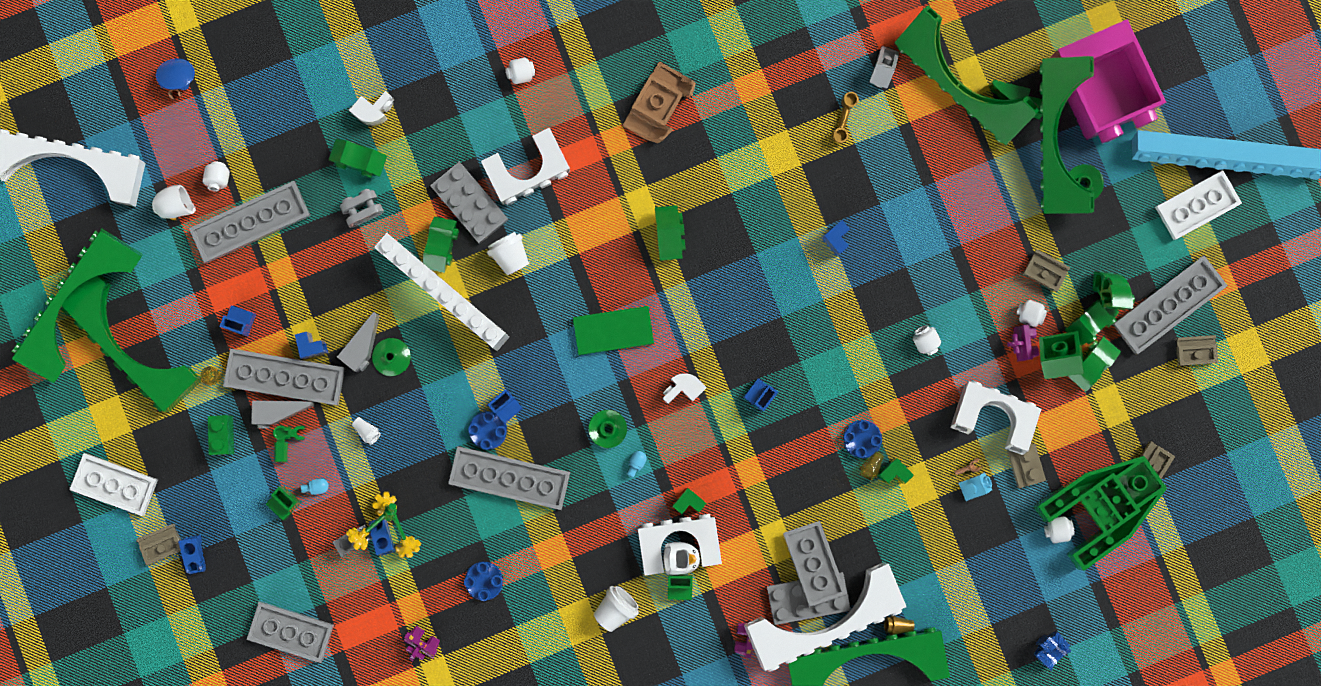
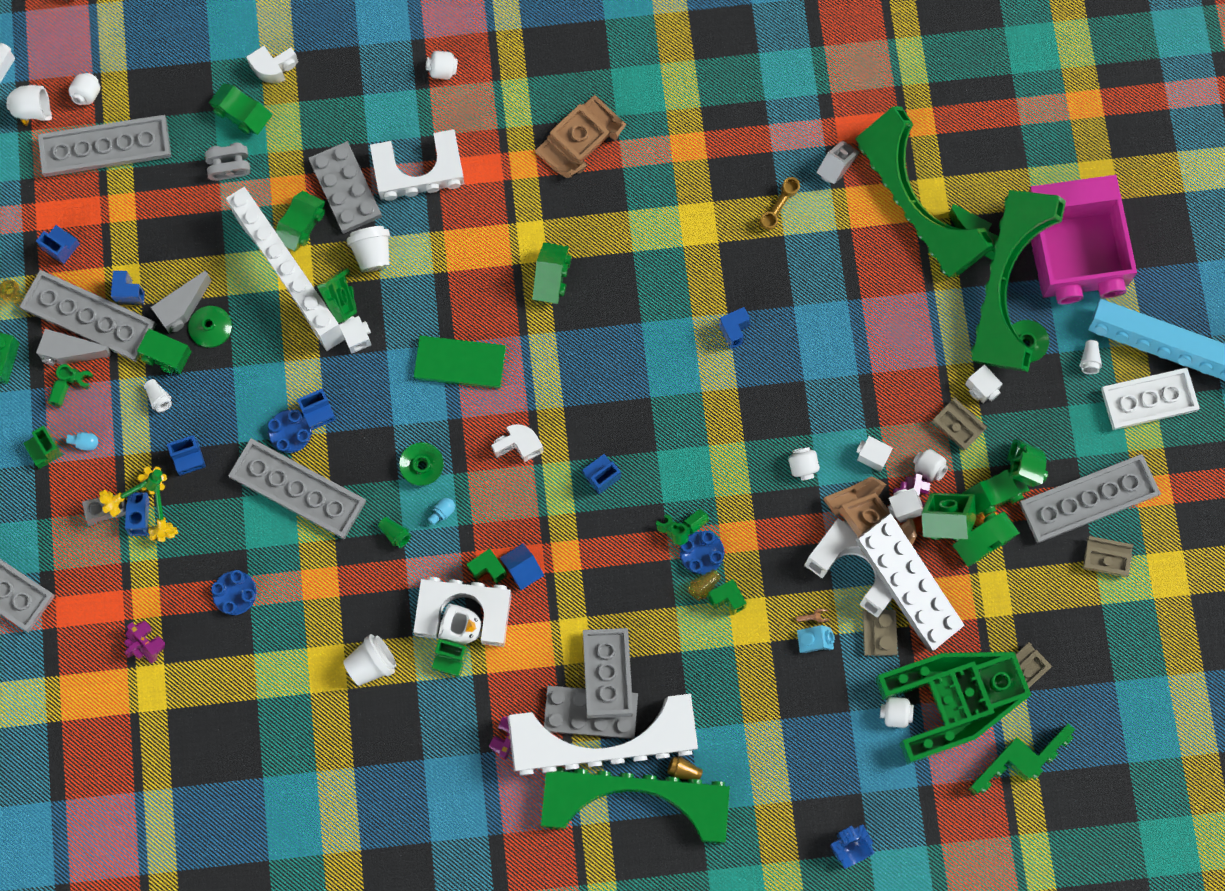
camera: 20 degrees right, 10 degrees down
(359, 391) = (164, 352): none -> green brick
(407, 476) = (186, 455): none -> blue piece
(495, 304) = (339, 296): none -> green wing
(518, 330) = (355, 333): none -> white brick
(602, 493) = (396, 533): none -> green cone
(717, 492) = (522, 566): none -> blue piece
(840, 428) = (680, 532): none -> green bar
(982, 315) = (873, 453): none -> white brick
(997, 375) = (864, 508): none -> medium nougat piece
(1023, 356) = (905, 505): none -> white brick
(1043, 420) = (909, 582): none -> plate
(1058, 231) = (984, 385): none -> white brick
(1141, 184) = (1091, 358): none -> white cone
(1170, 540) = (1022, 760): none -> green bracket

